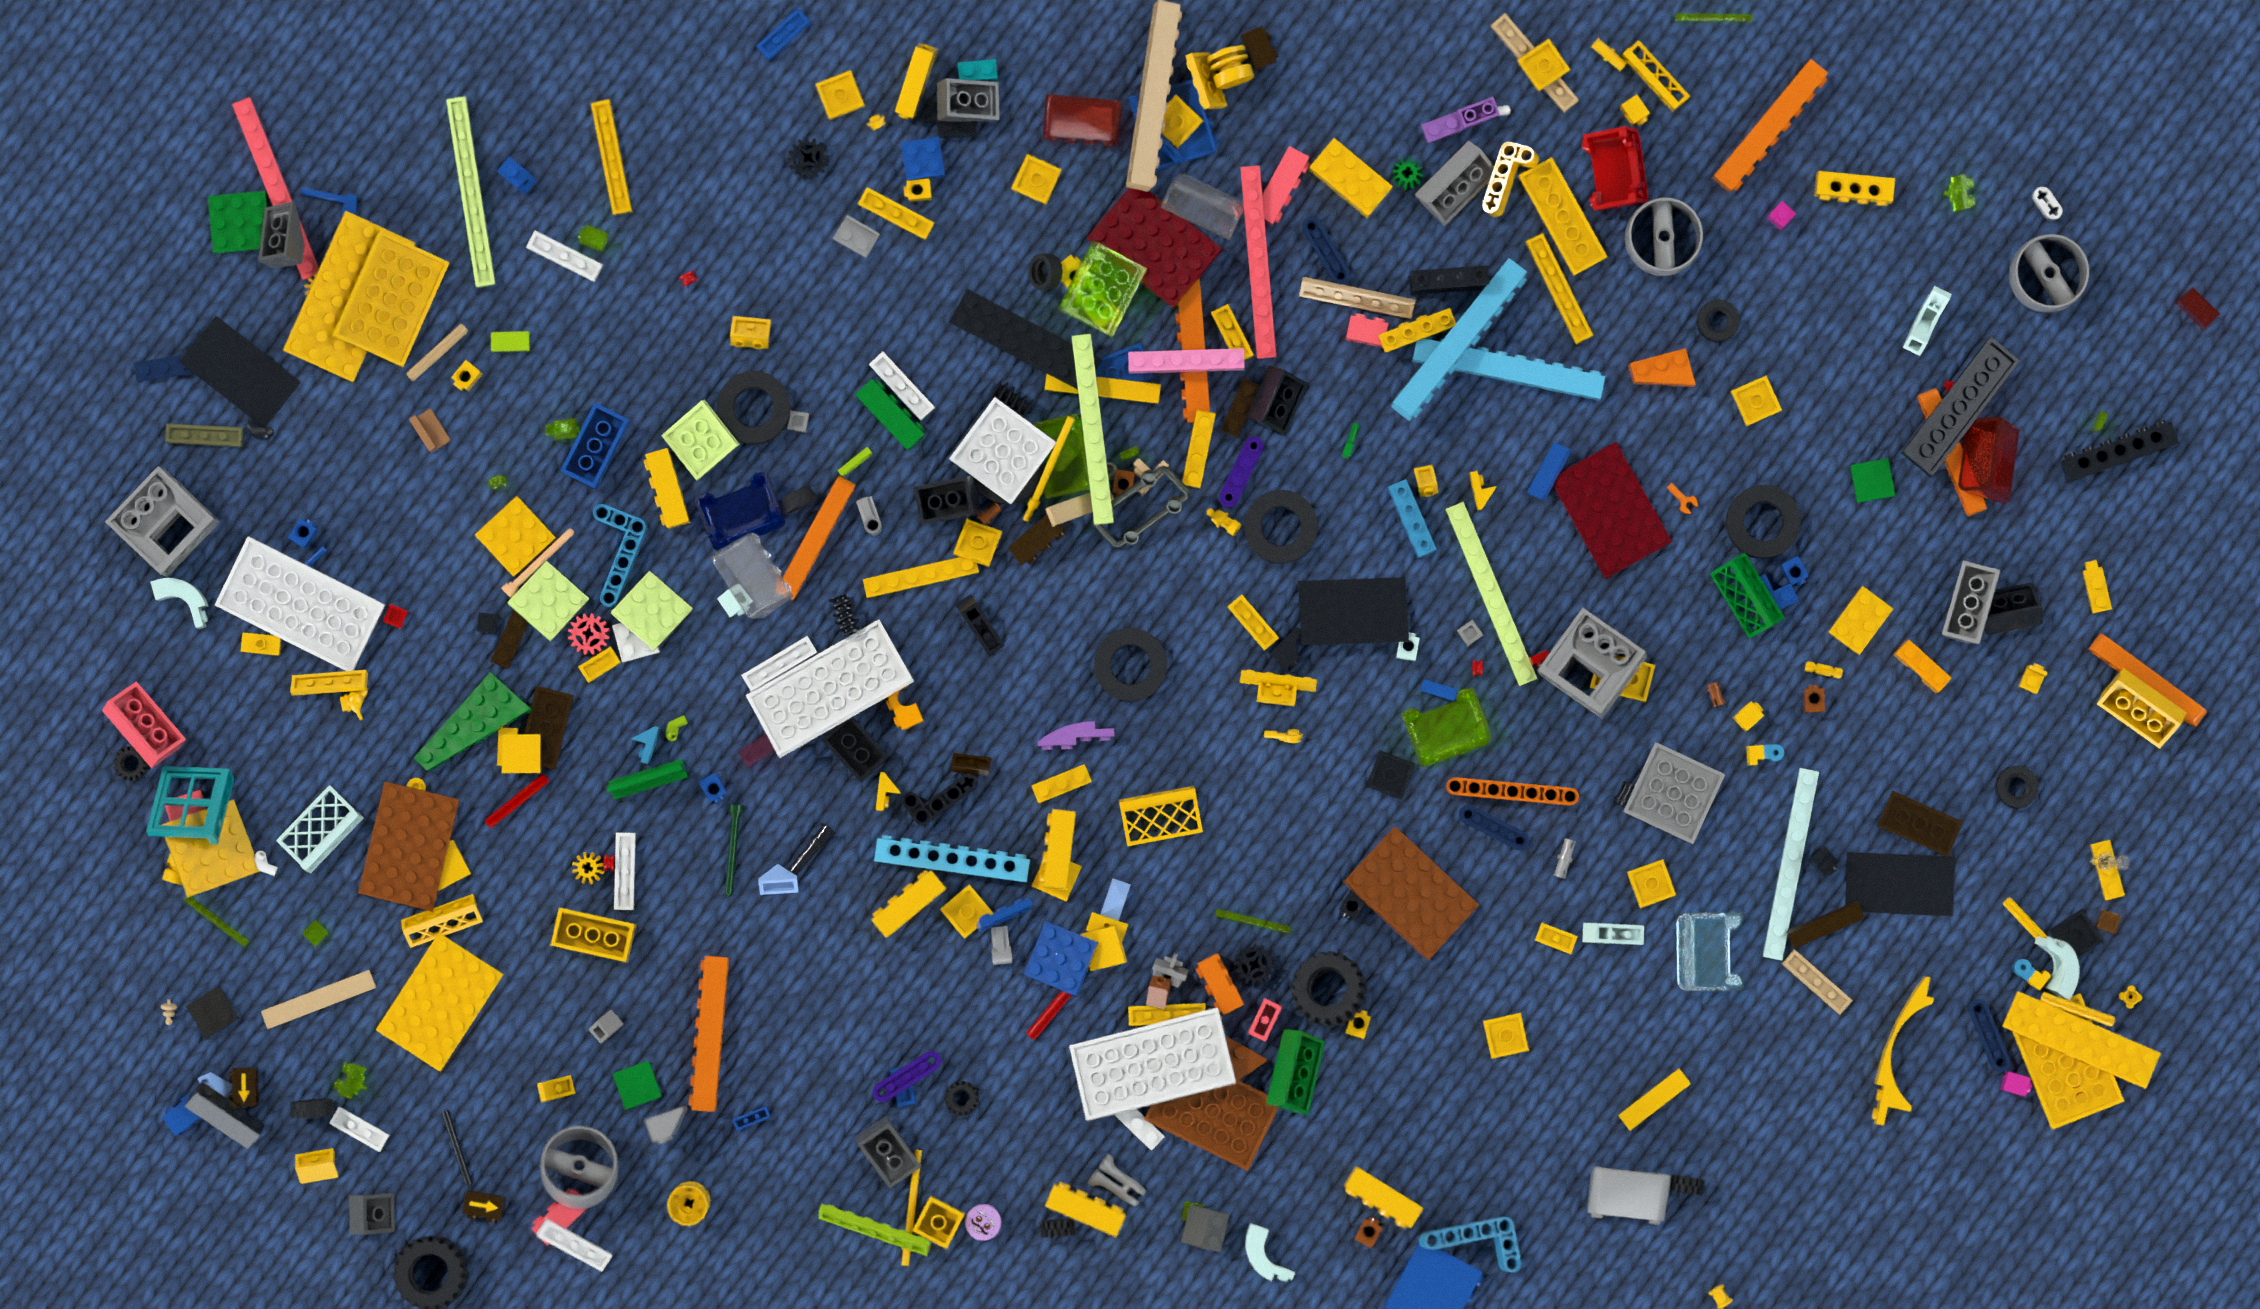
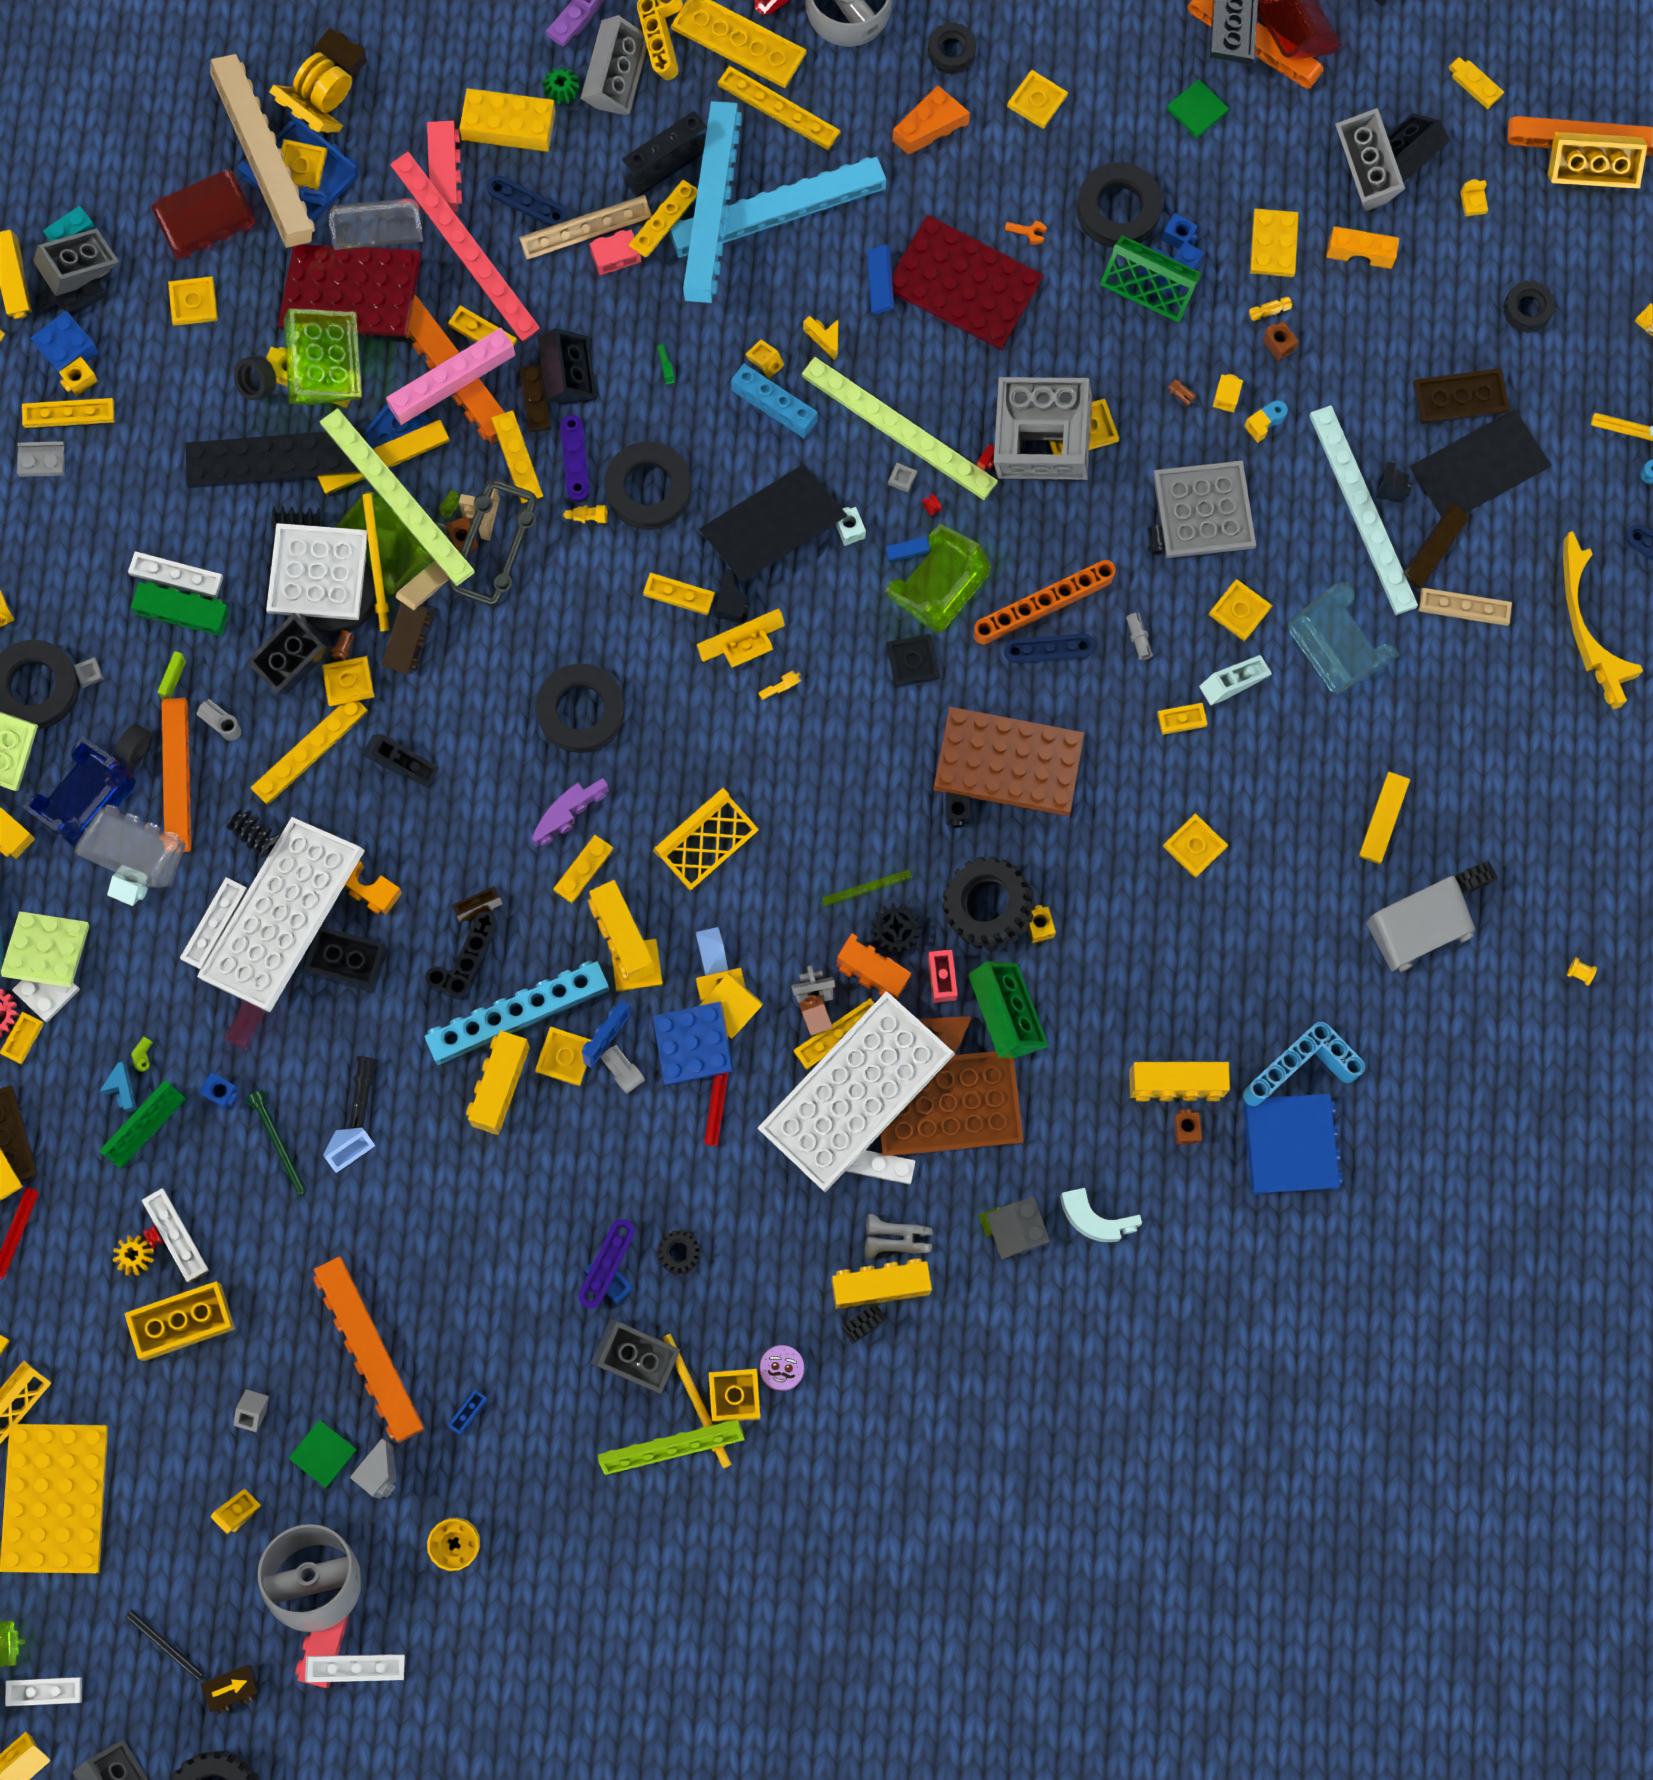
camera: 40 degrees left, 10 degrees down
(885, 785) = (402, 980): yellow slope -> none

